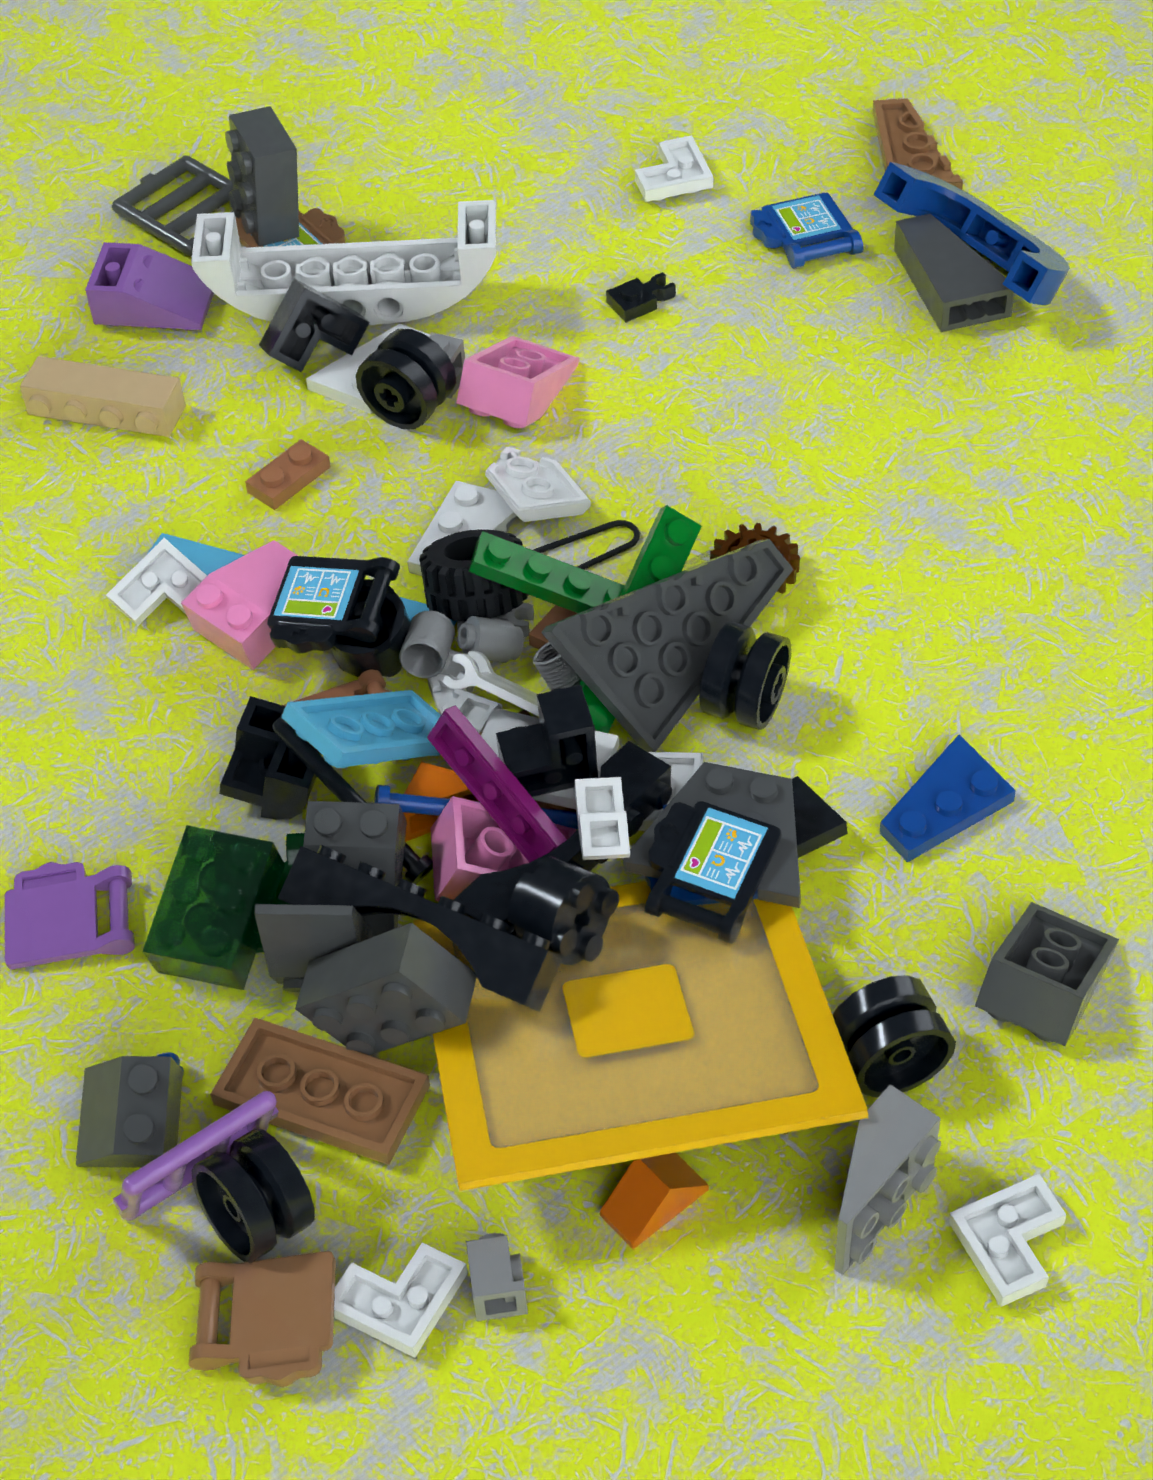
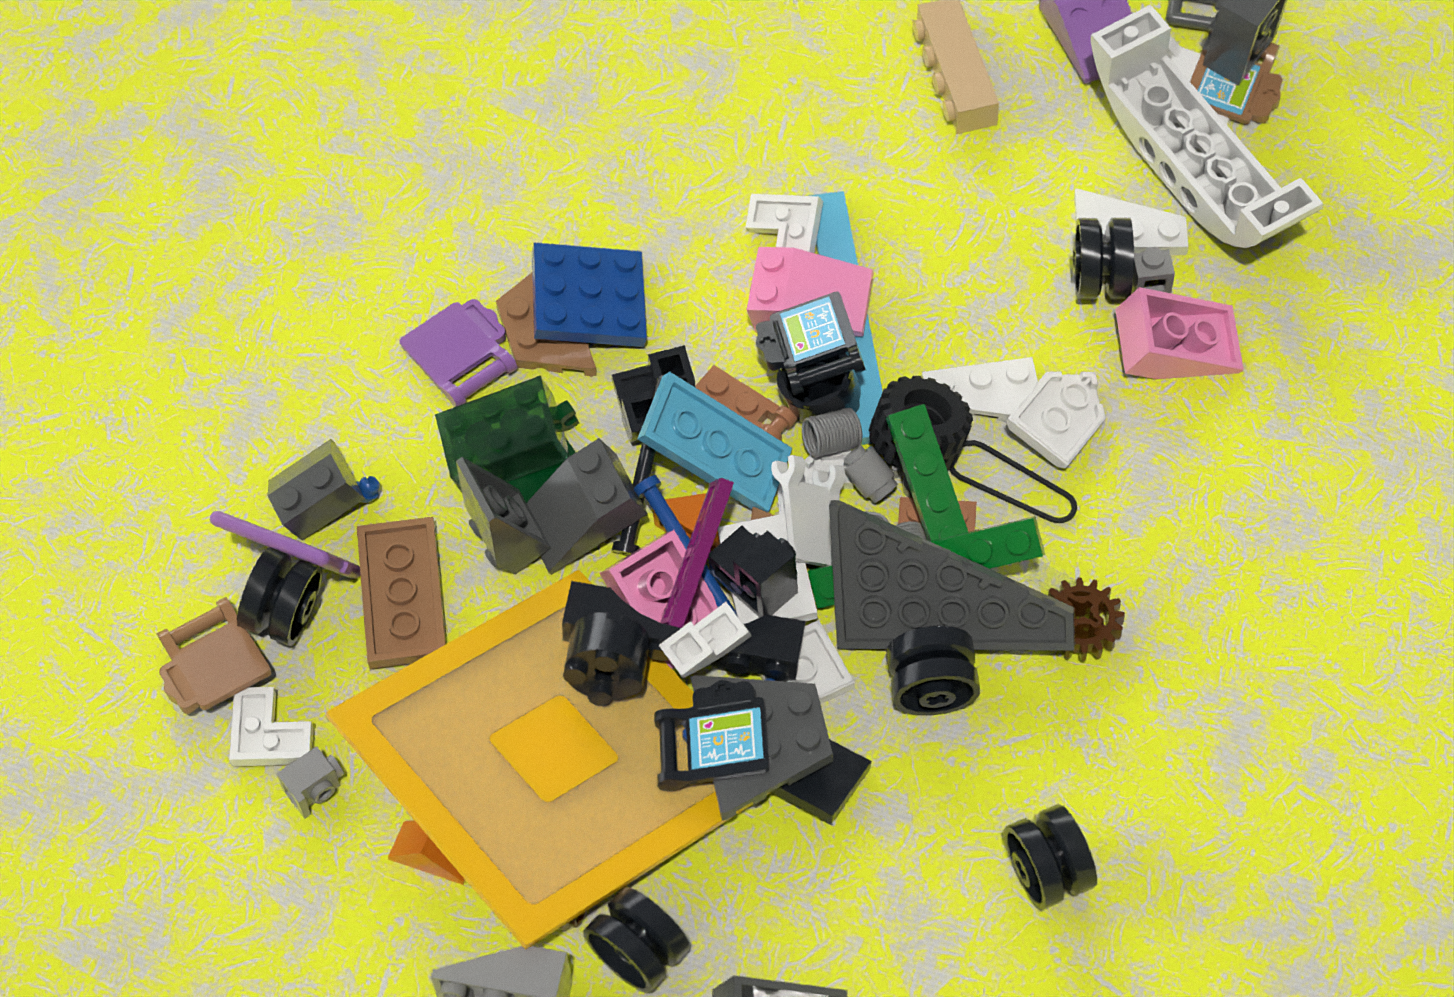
camera: 60 degrees right, 10 degrees up
(99, 826) = (529, 353): none -> medium nougat wing
(103, 771) = (588, 294): none -> blue plate
(287, 474) = (965, 237): nougat plate -> none
(304, 319) = (1124, 154): black brick -> none
(386, 991) = (470, 584): dark grey brick -> none
(501, 961) = (533, 643): black arch -> none
(637, 299) = (1349, 371): black plate -> none
(945, 801) = (916, 882): blue wing -> none
(996, 674) = (1050, 856): none -> black wheel

